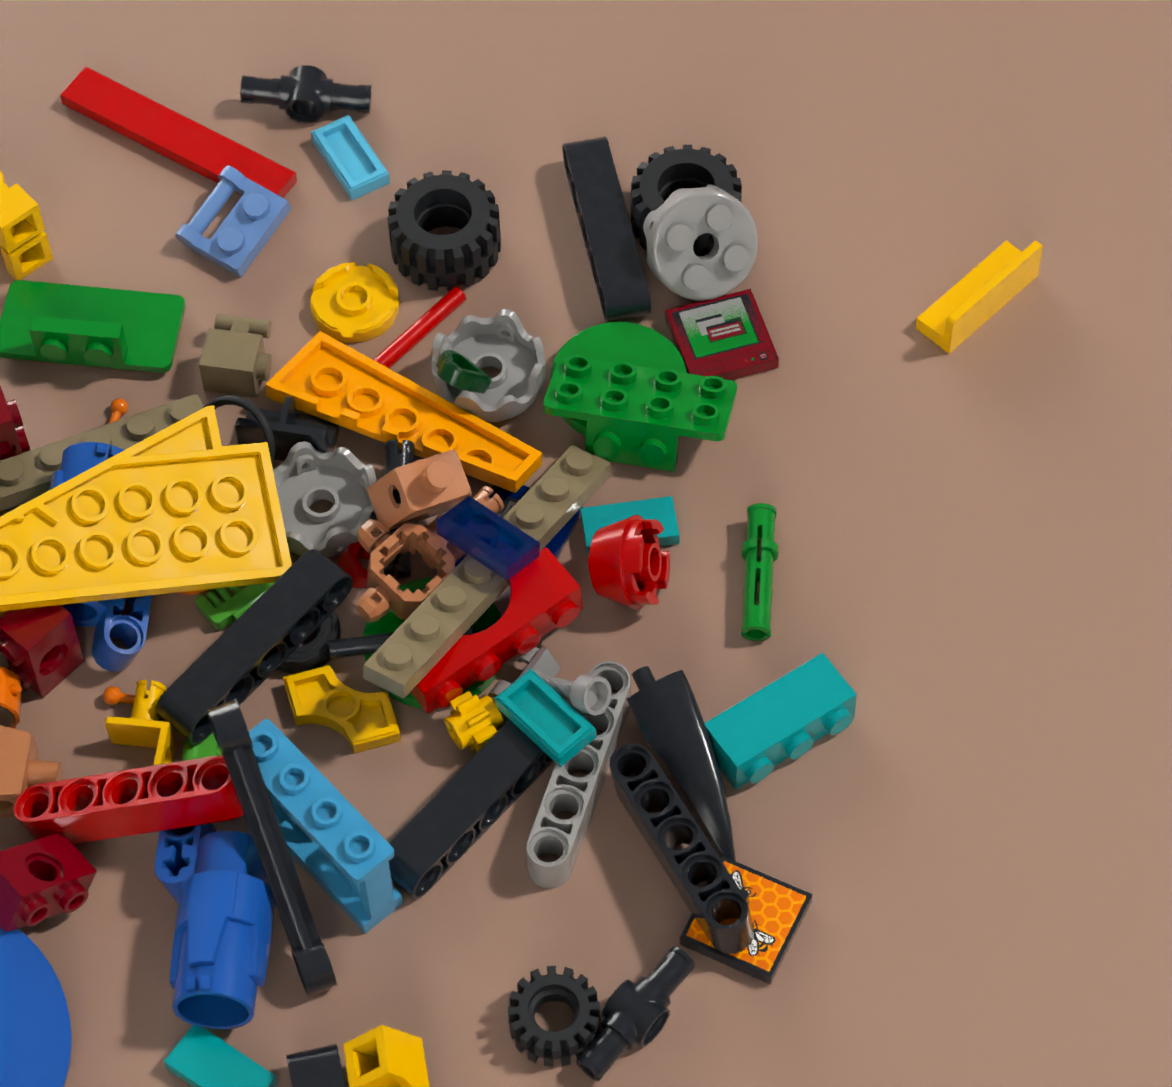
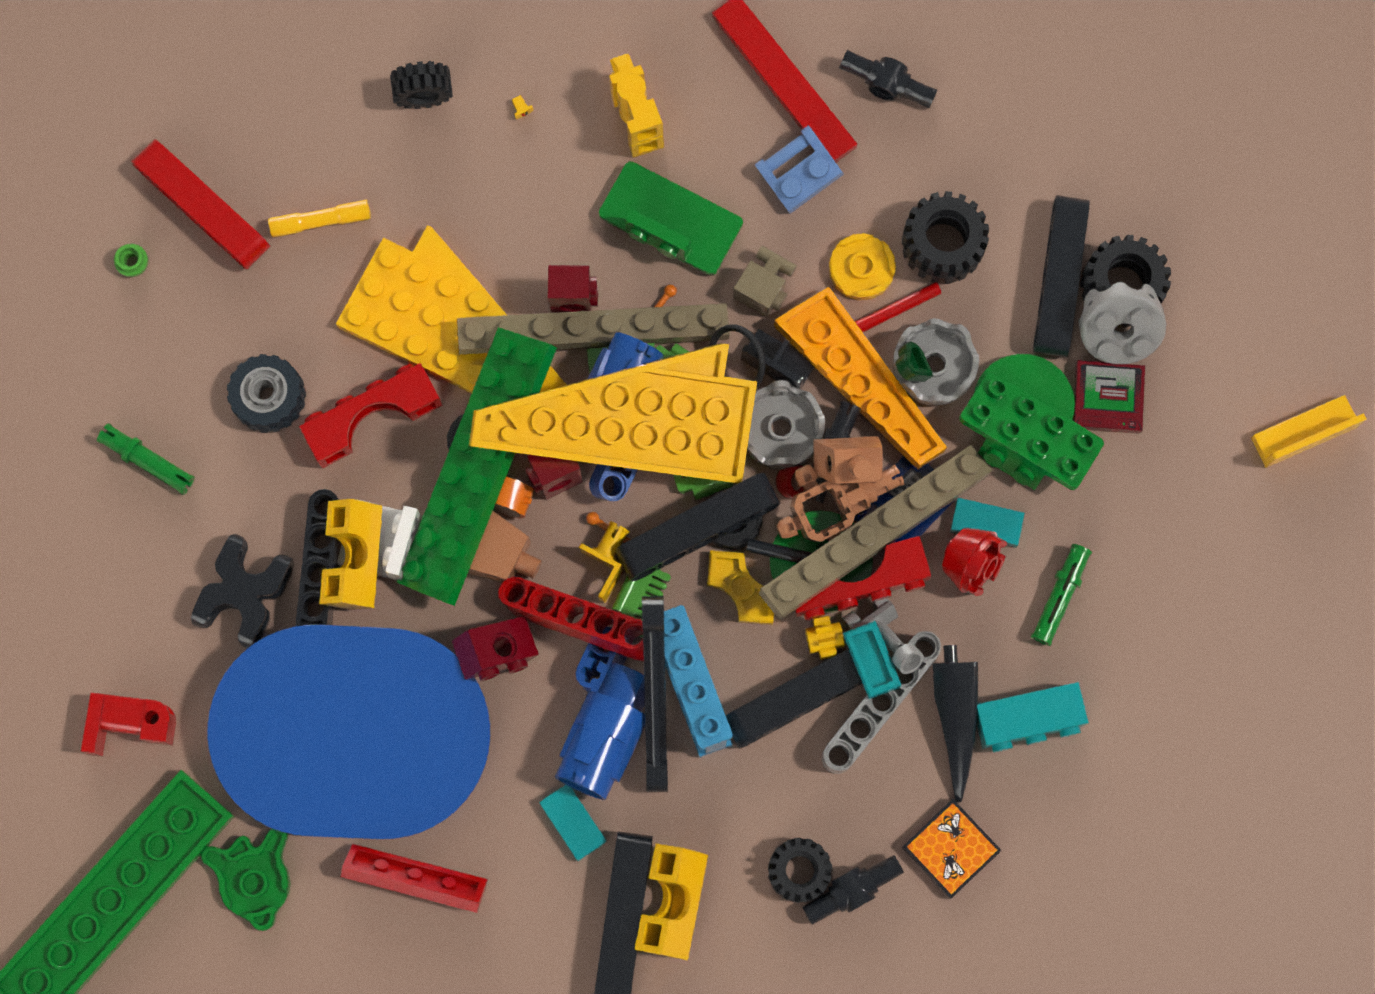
camera: 20 degrees right, 20 degrees up
(350, 157) = (901, 142): medium azure tile -> none
(488, 538) = (881, 517): clear blue plate -> none
(685, 866) = (930, 770): black beam -> none

